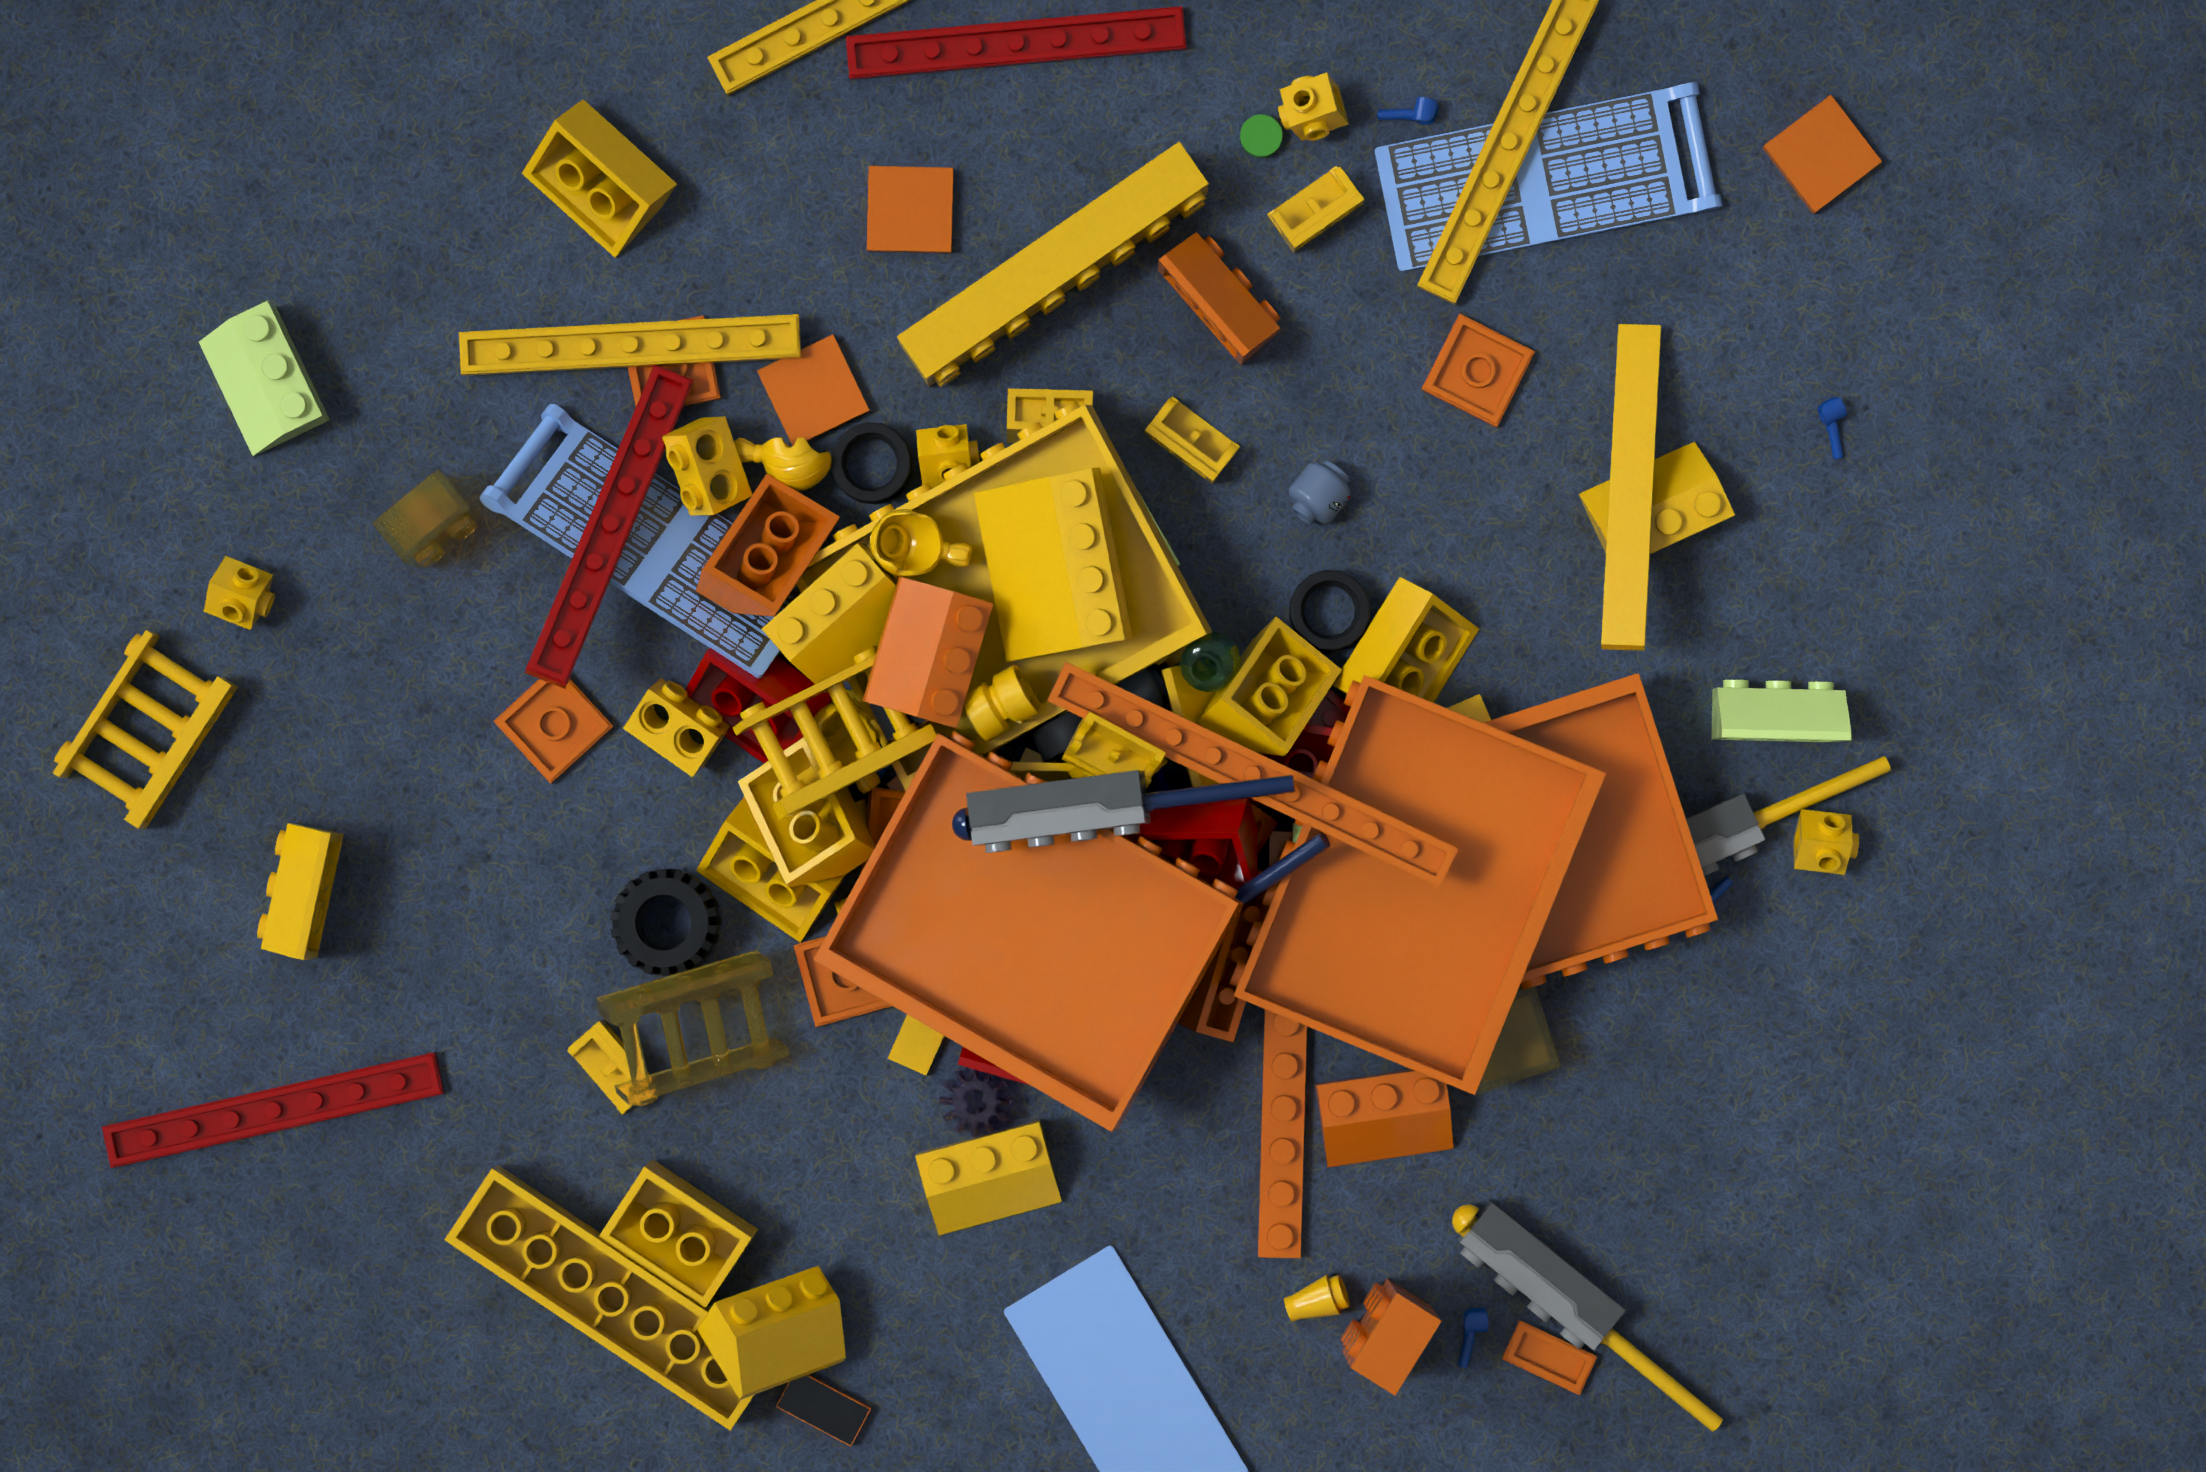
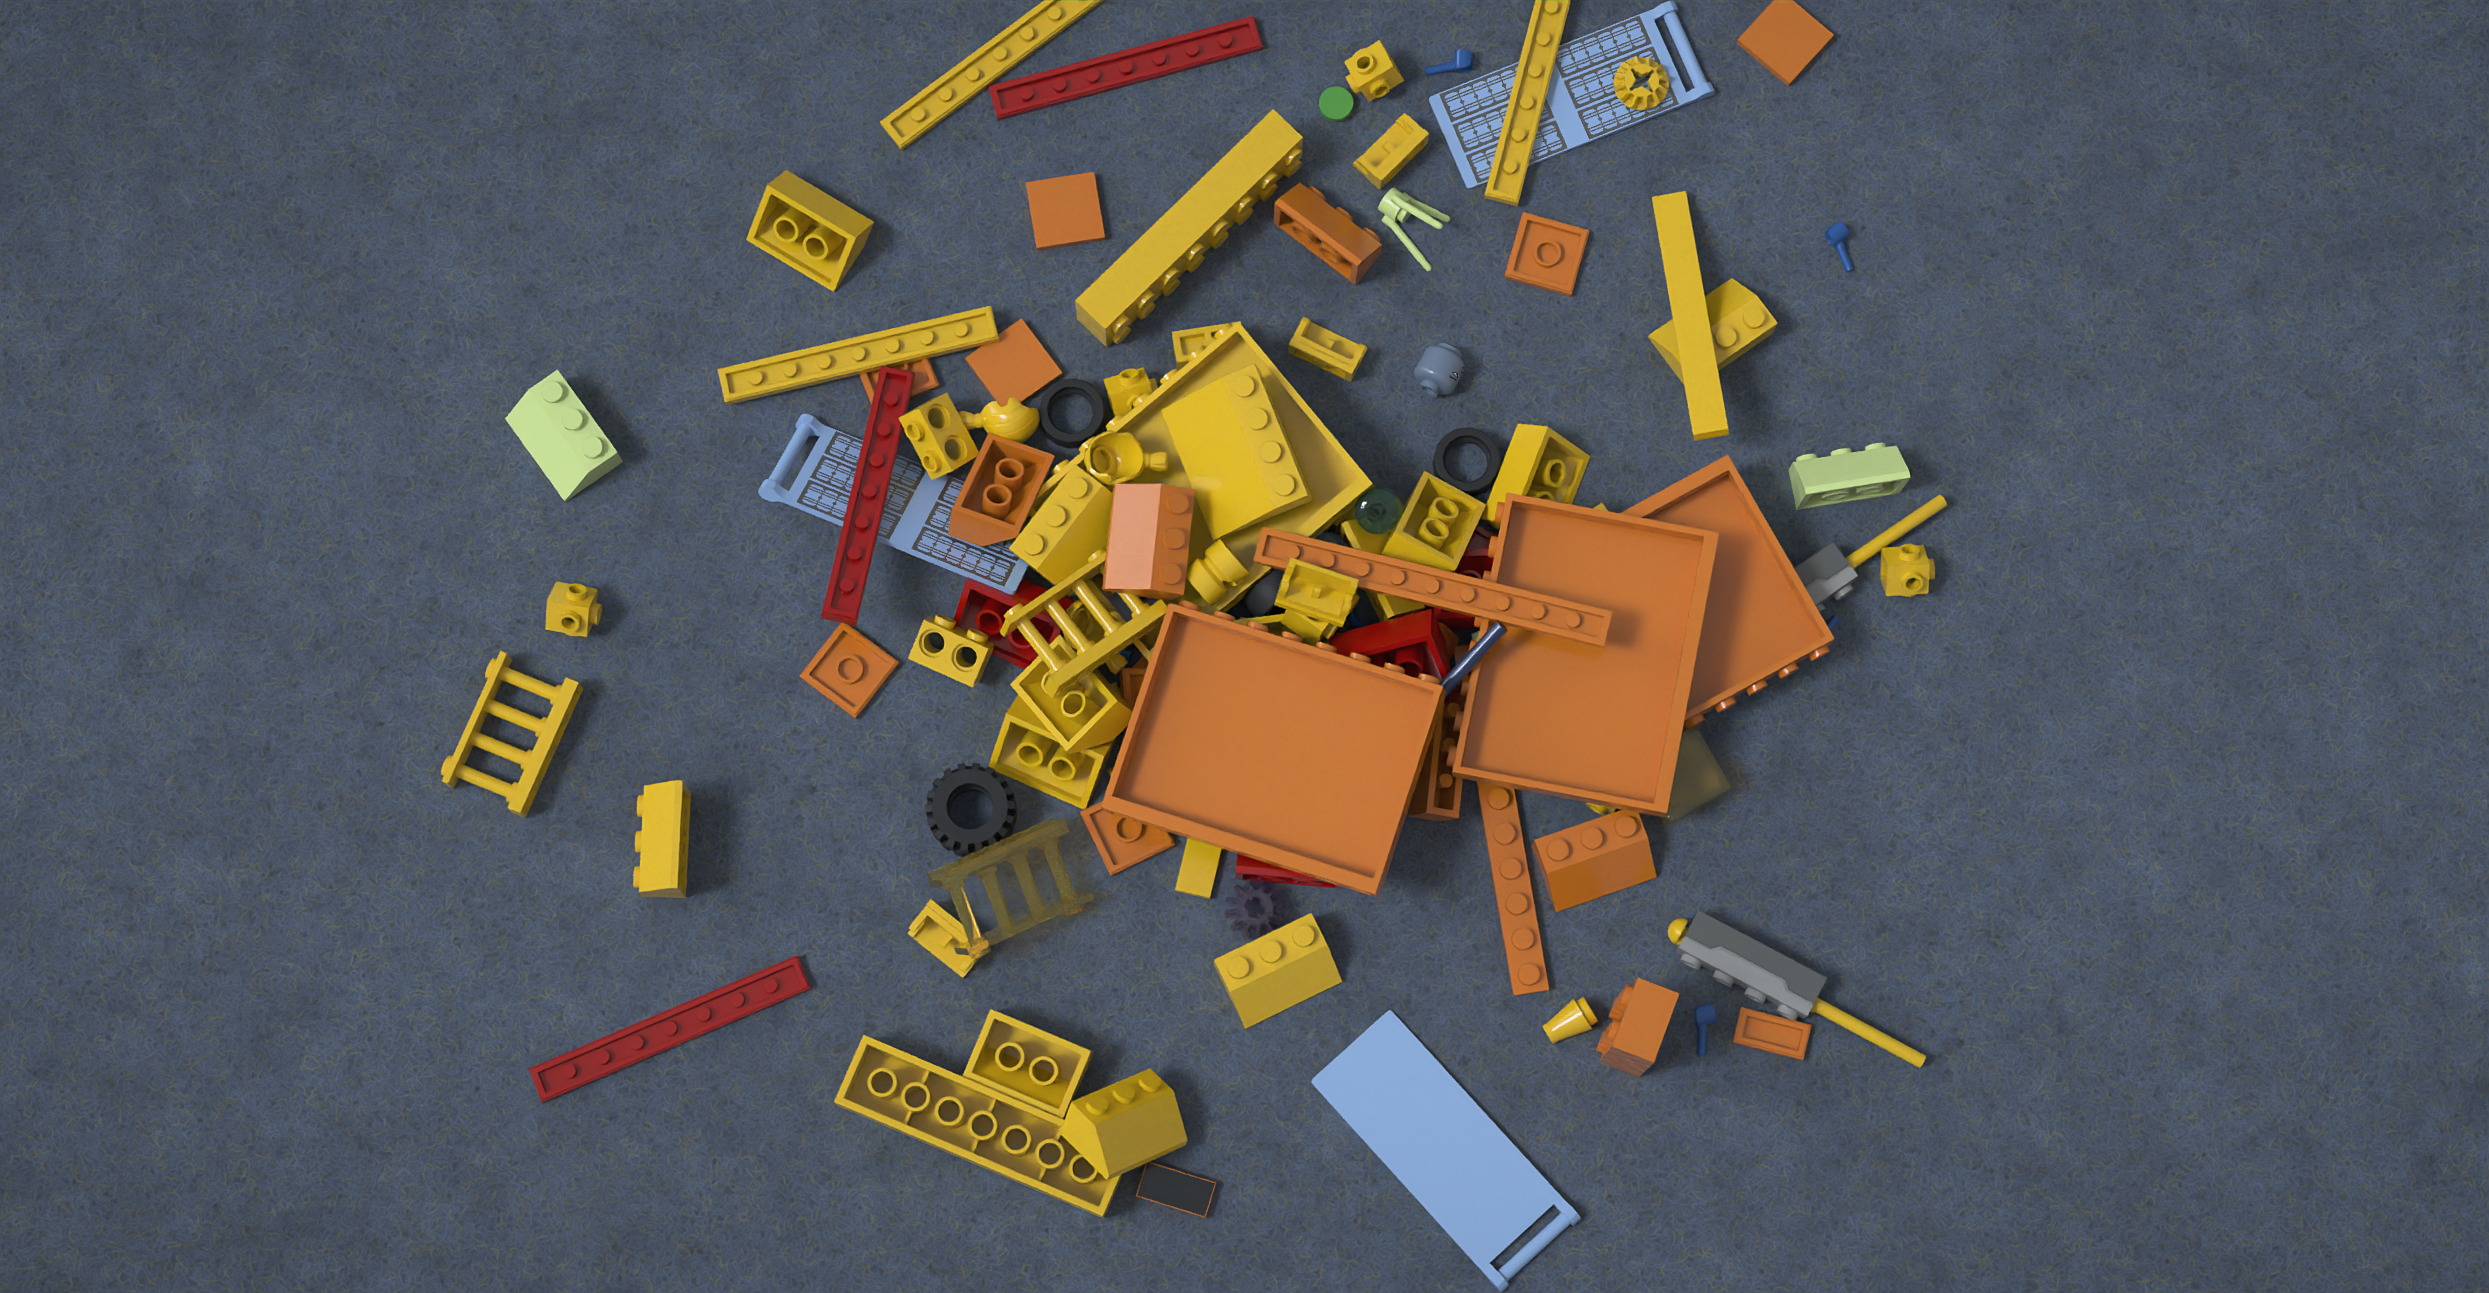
camera: 15 degrees left, 10 degrees down
(428, 520) = (718, 520): clear yellow brick -> none
(1086, 806) = (1300, 633): piece -> none
(1312, 280) = (1399, 207): none -> yellowish green plant
(1630, 199) = (1640, 97): none -> yellow gear

